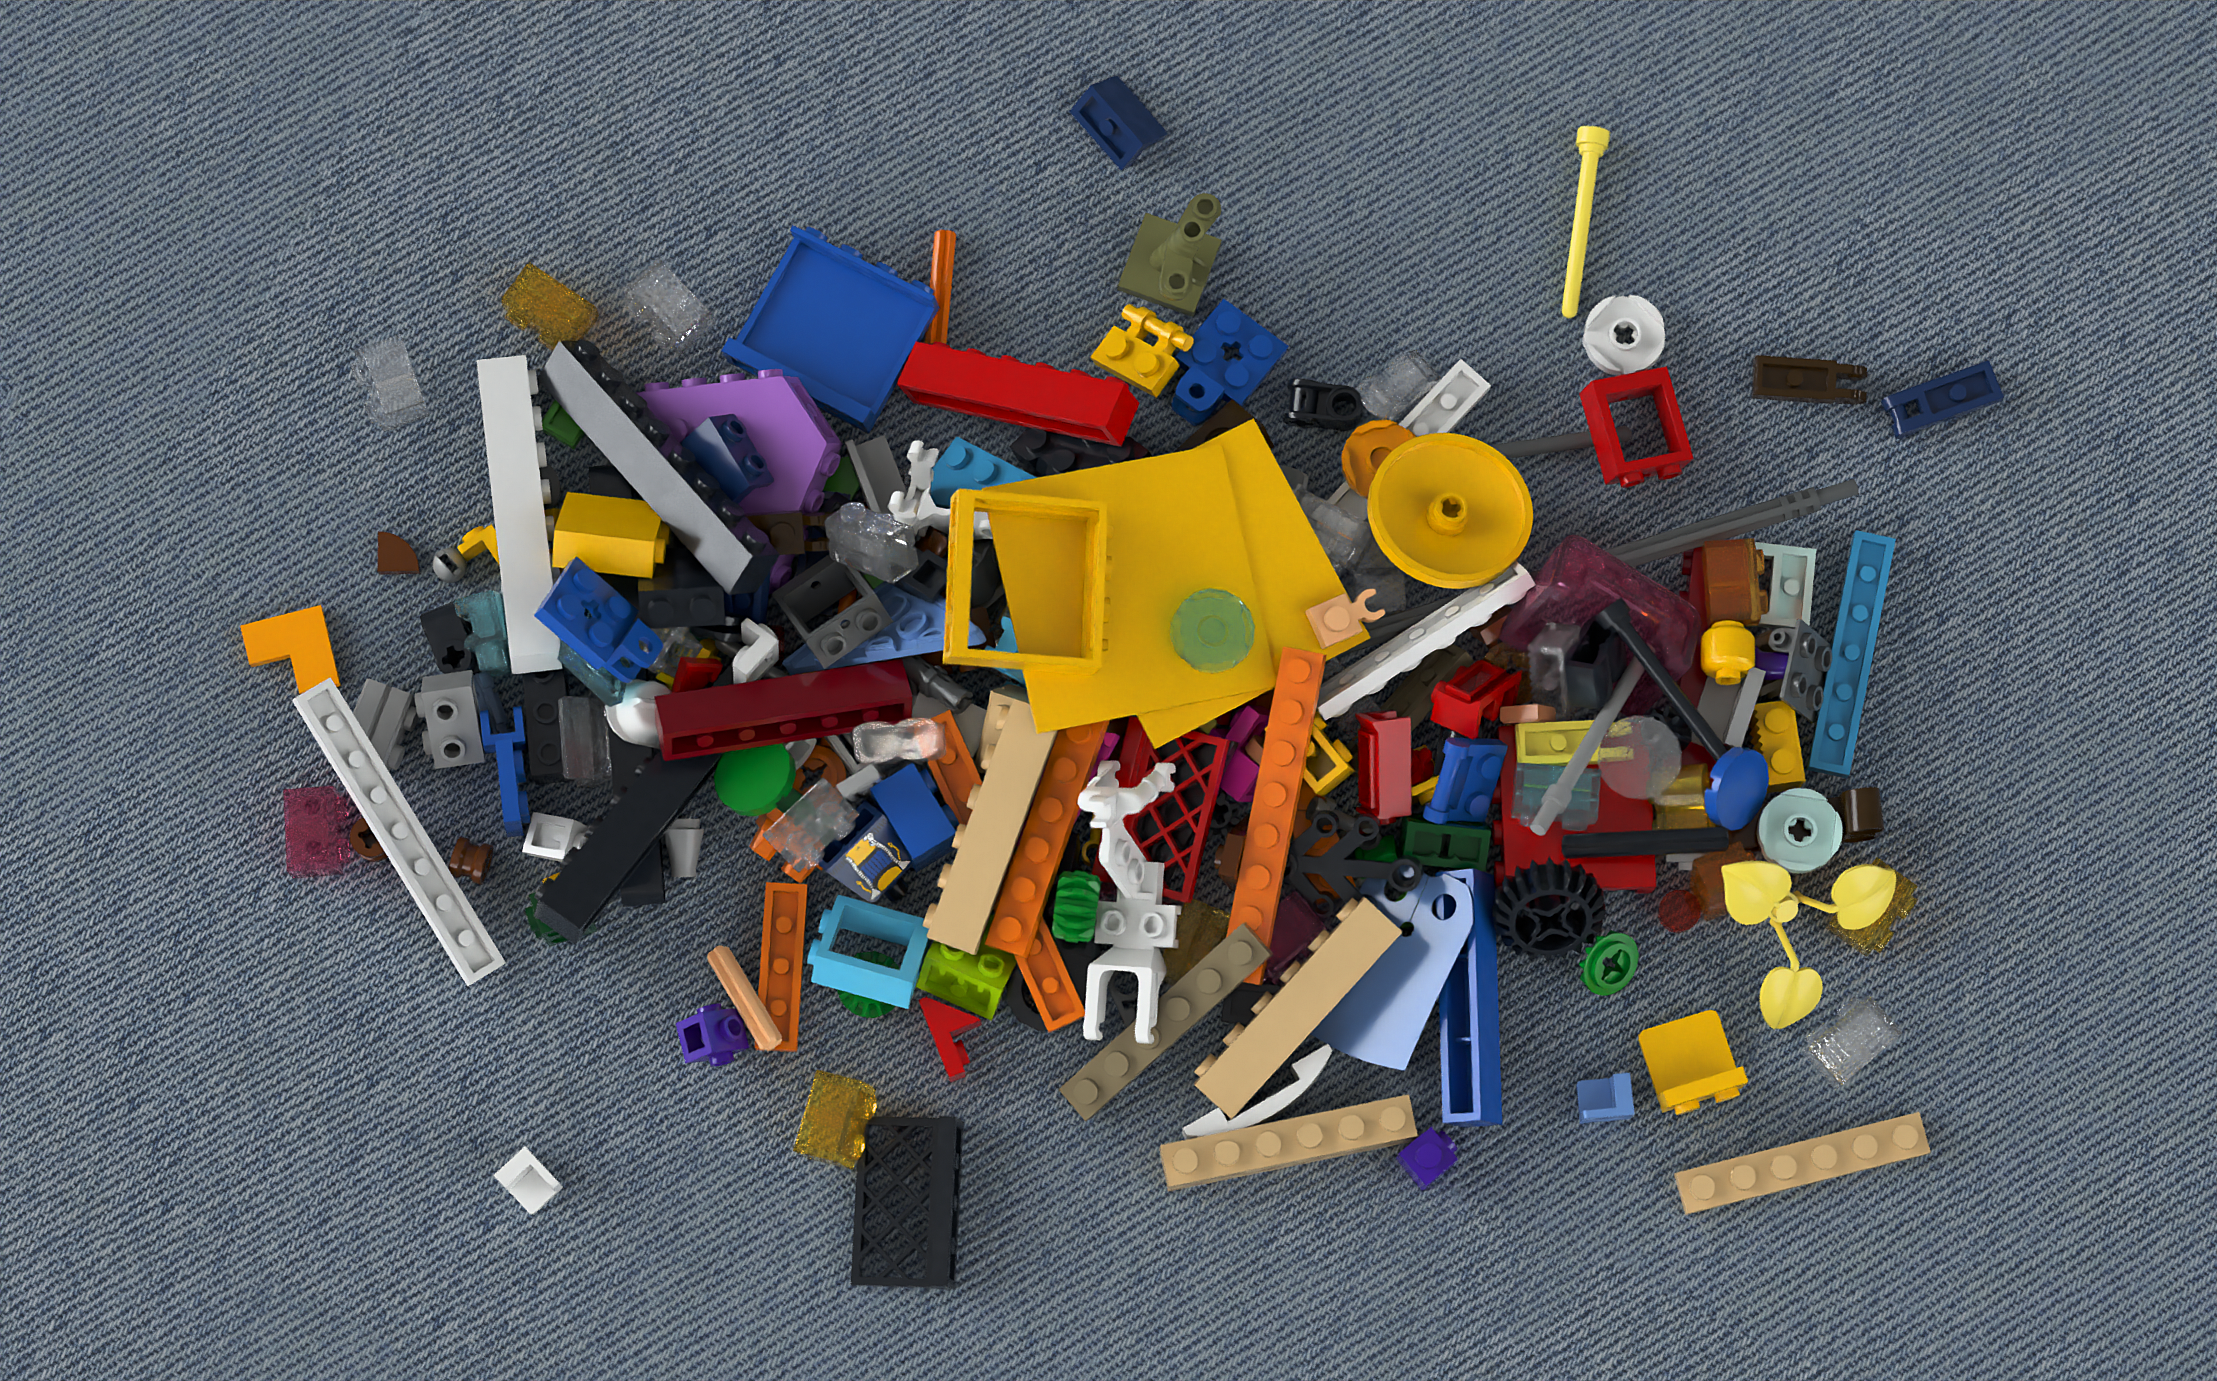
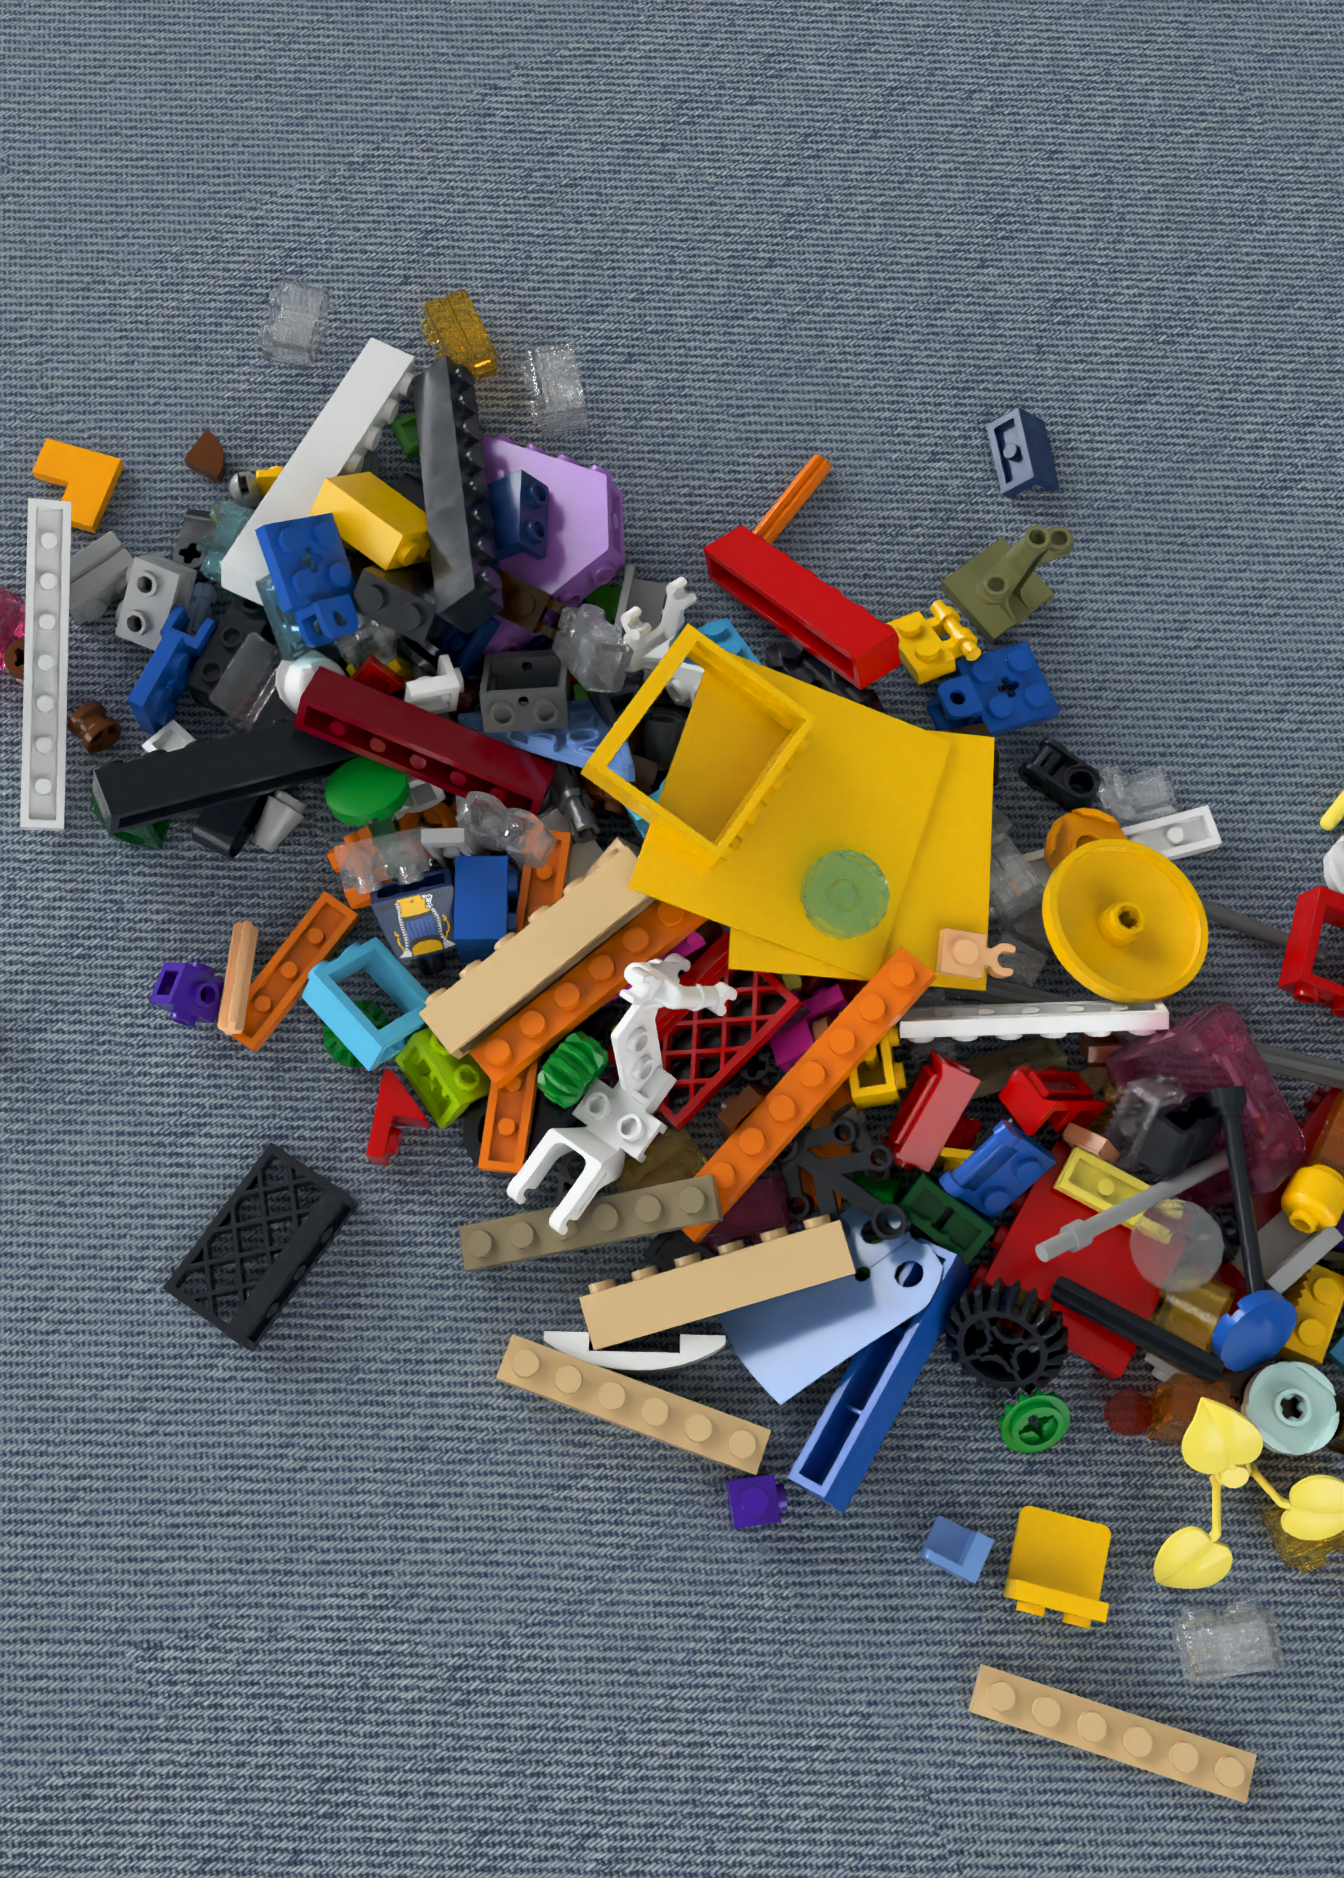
camera: 30 degrees right, 5 degrees down
(835, 327) = (684, 480): blue panel -> none
(835, 1120) = (243, 1131): clear yellow brick -> none
(1531, 784) = (1058, 1209): clear light blue brick -> none

